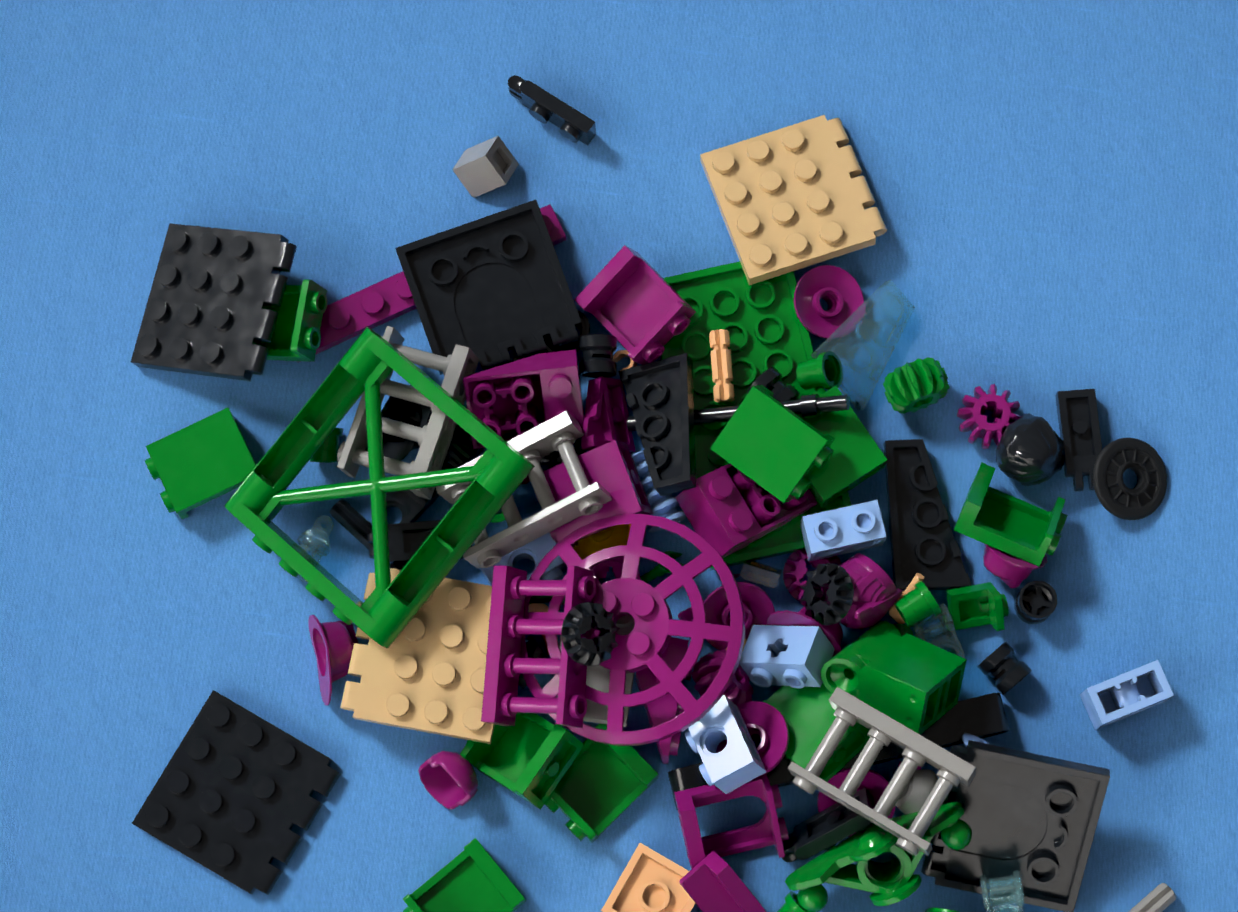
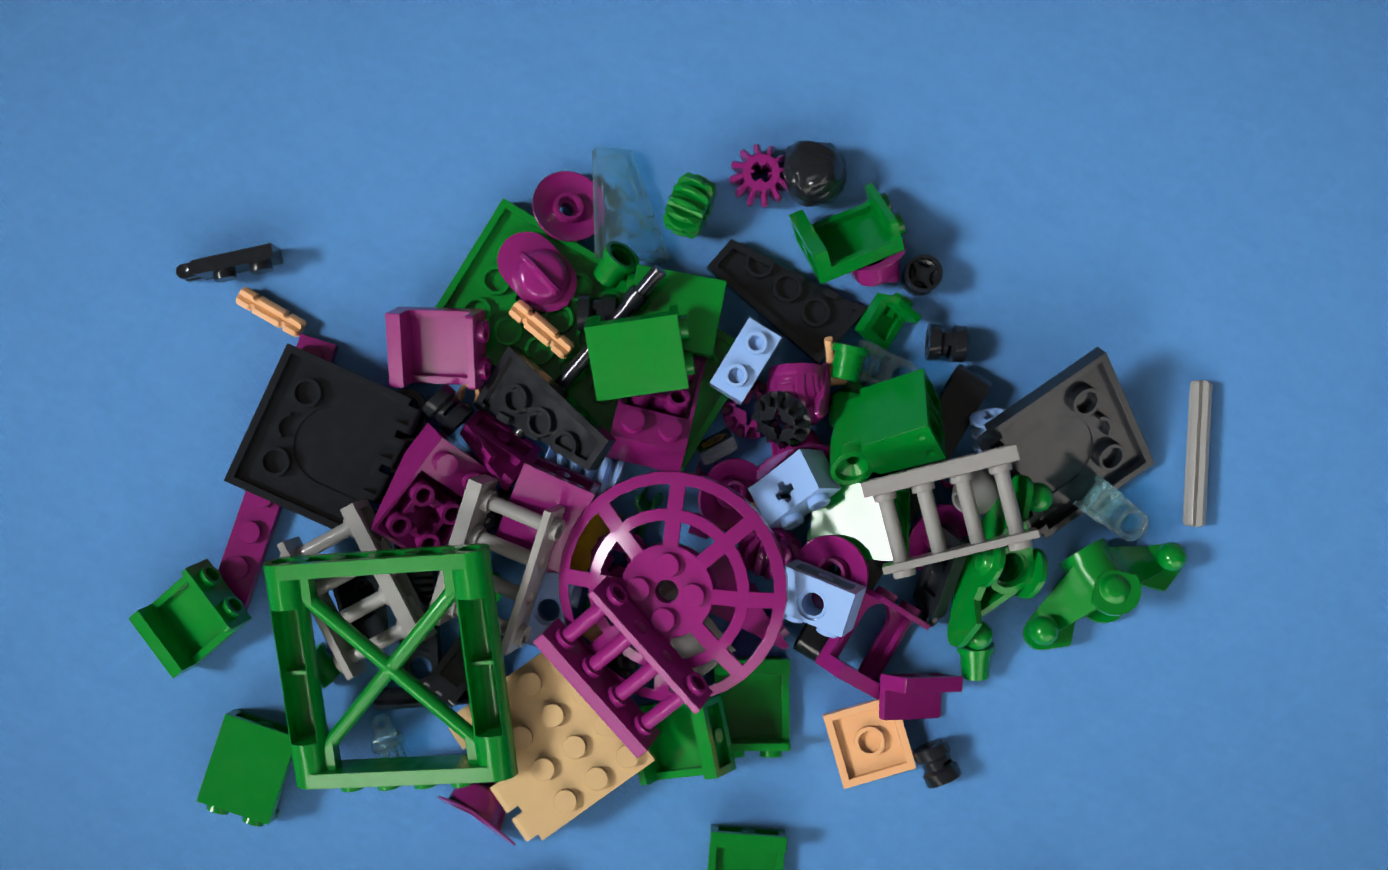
camera: 45 degrees left, 10 degrees up
(214, 302) = (135, 648): black hinge -> none
(449, 779) = (650, 806): magenta hair -> none
(485, 166) = (226, 353): light grey panel -> none
(544, 169) = (270, 312): none -> light nougat axle
(581, 619) = (638, 629): black gear -> none
(759, 324) = (537, 271): none -> magenta piece
(793, 198) = (467, 156): tan hinge -> none
(1080, 433) = (837, 126): black hinge -> none
(1109, 483) = (884, 136): black wheel -> none
(1126, 694) = (1047, 278): light blue brick -> none

